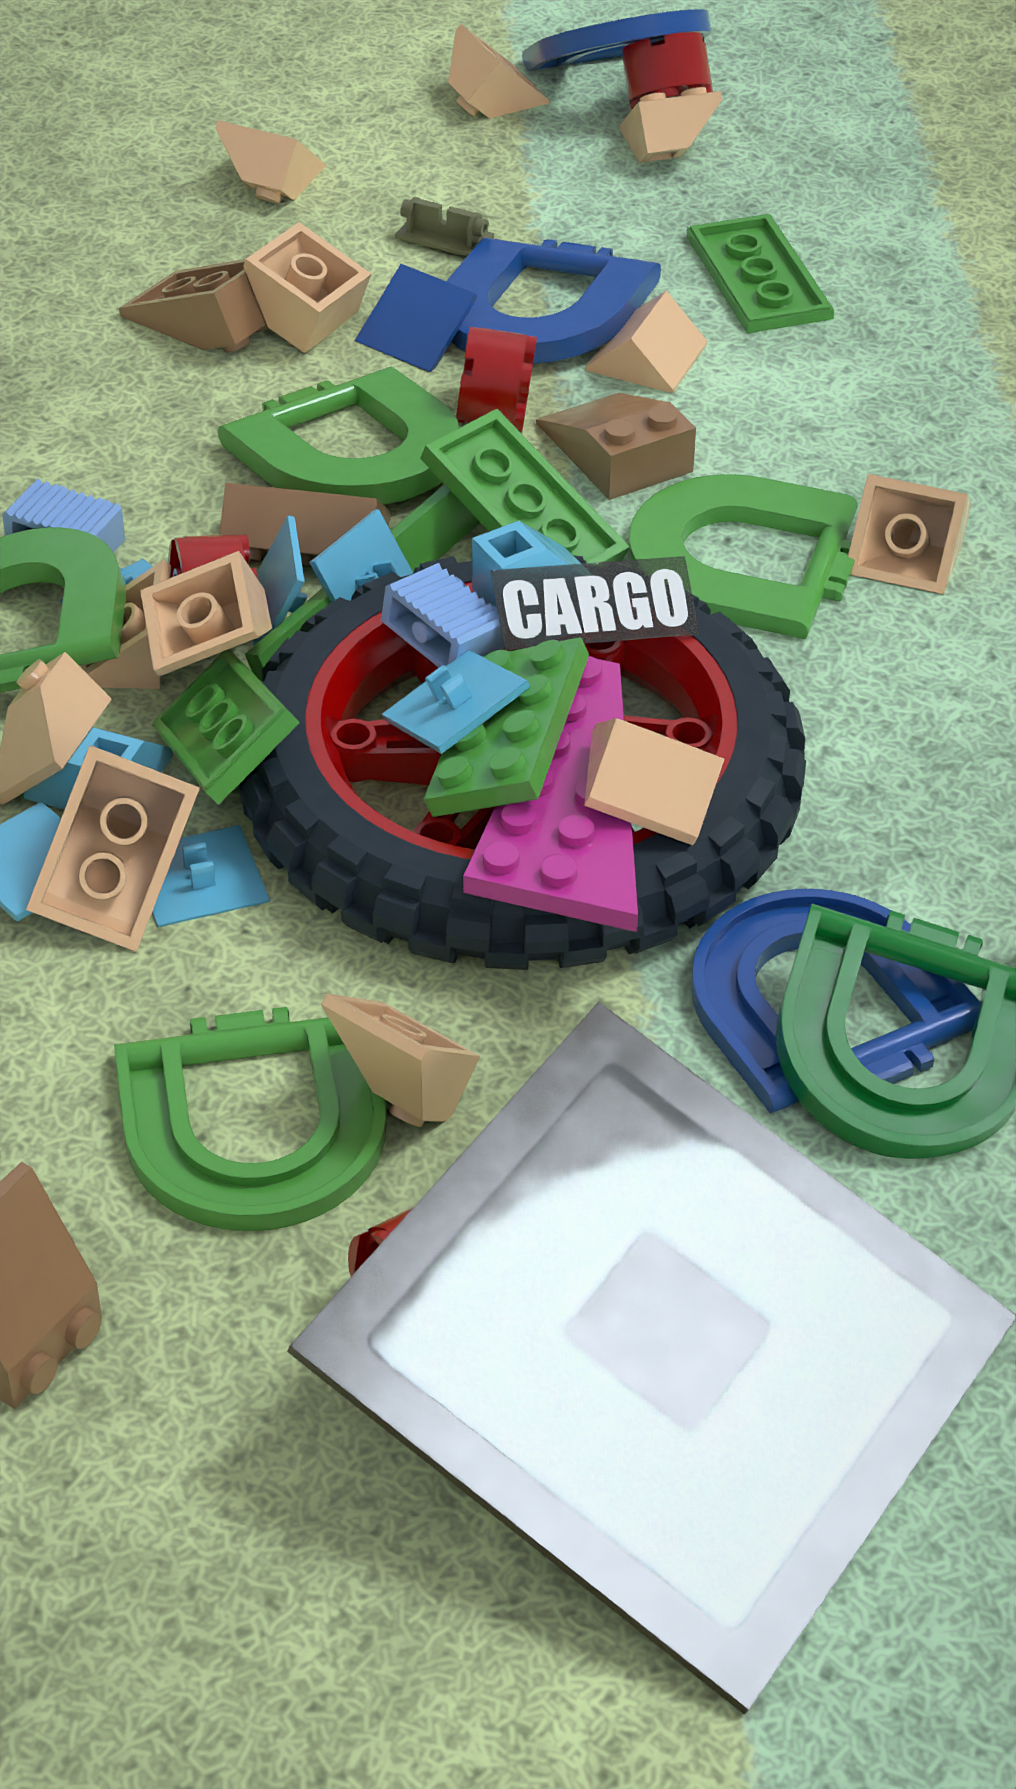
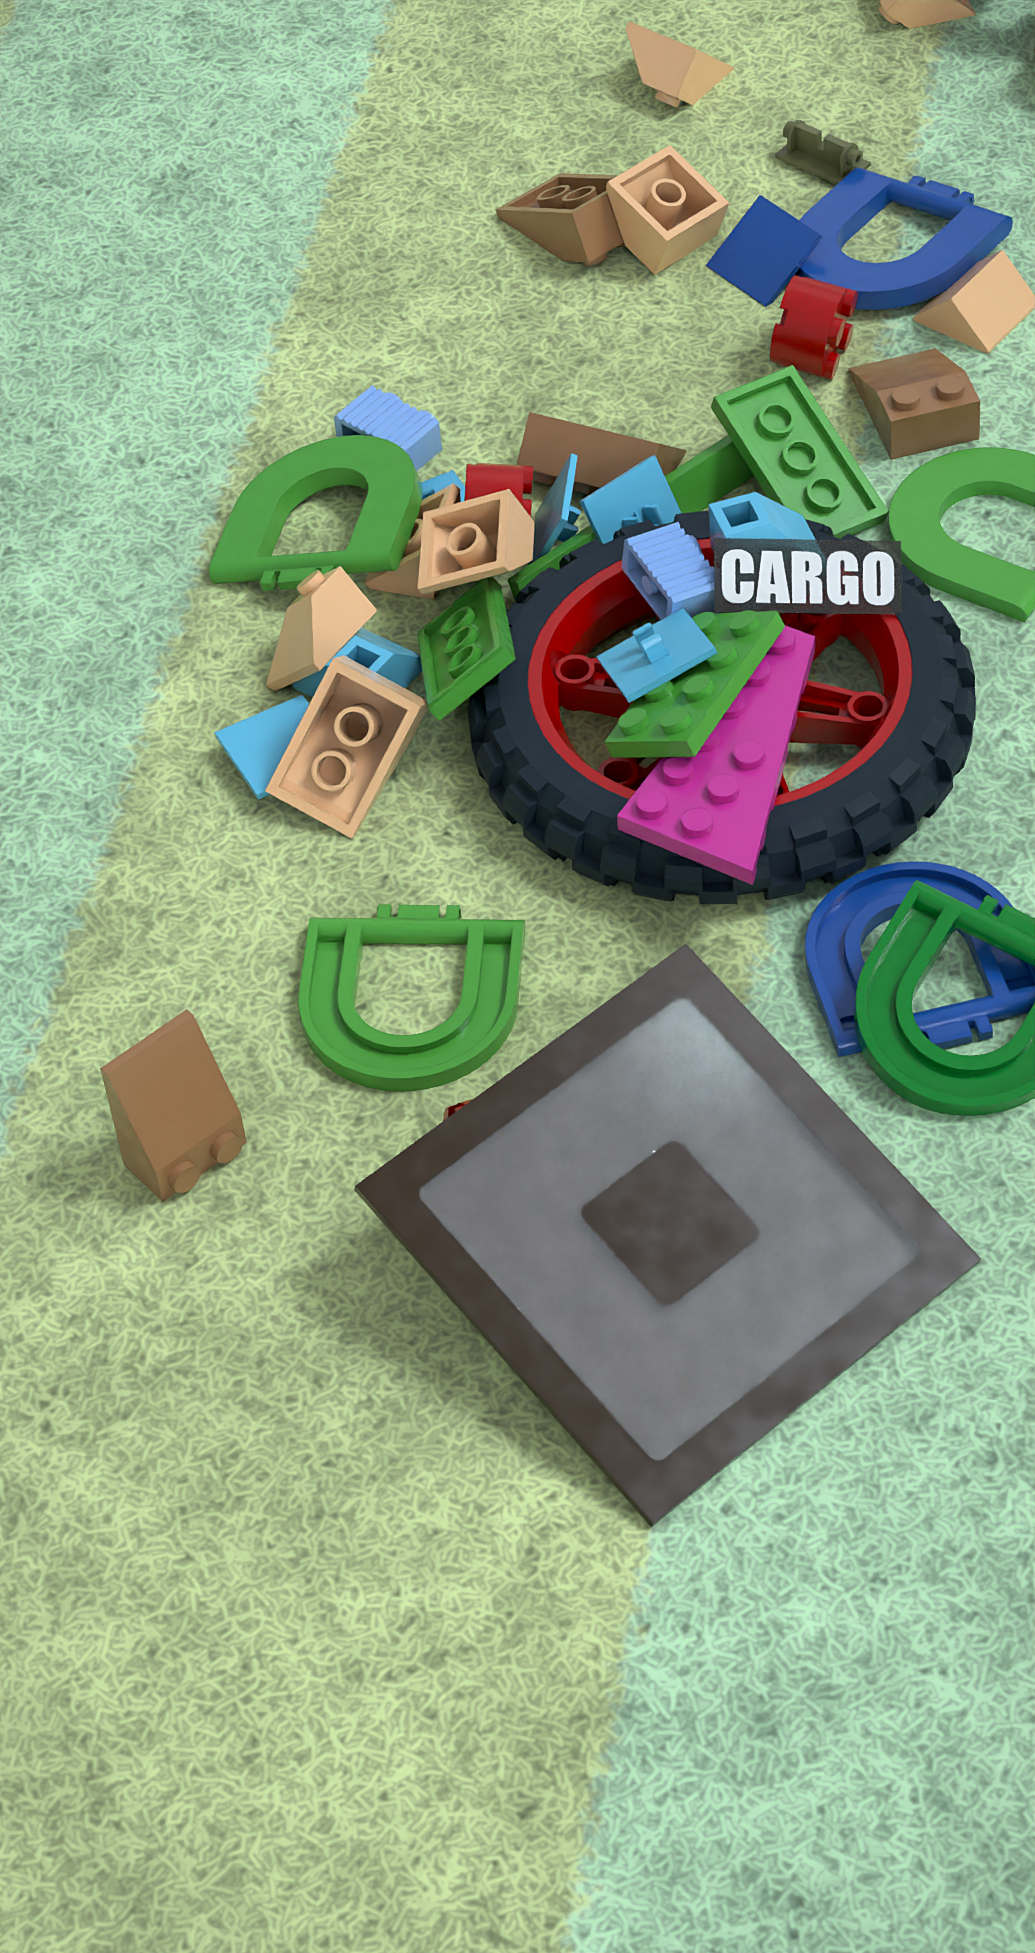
camera: 20 degrees right, 5 degrees up
(209, 877) = (429, 780): medium azure piece -> none
(291, 463) = (632, 412): bright green piece -> none
(402, 1058) = (533, 963): light nougat slope -> none
(650, 779) = (797, 753): light nougat slope -> none

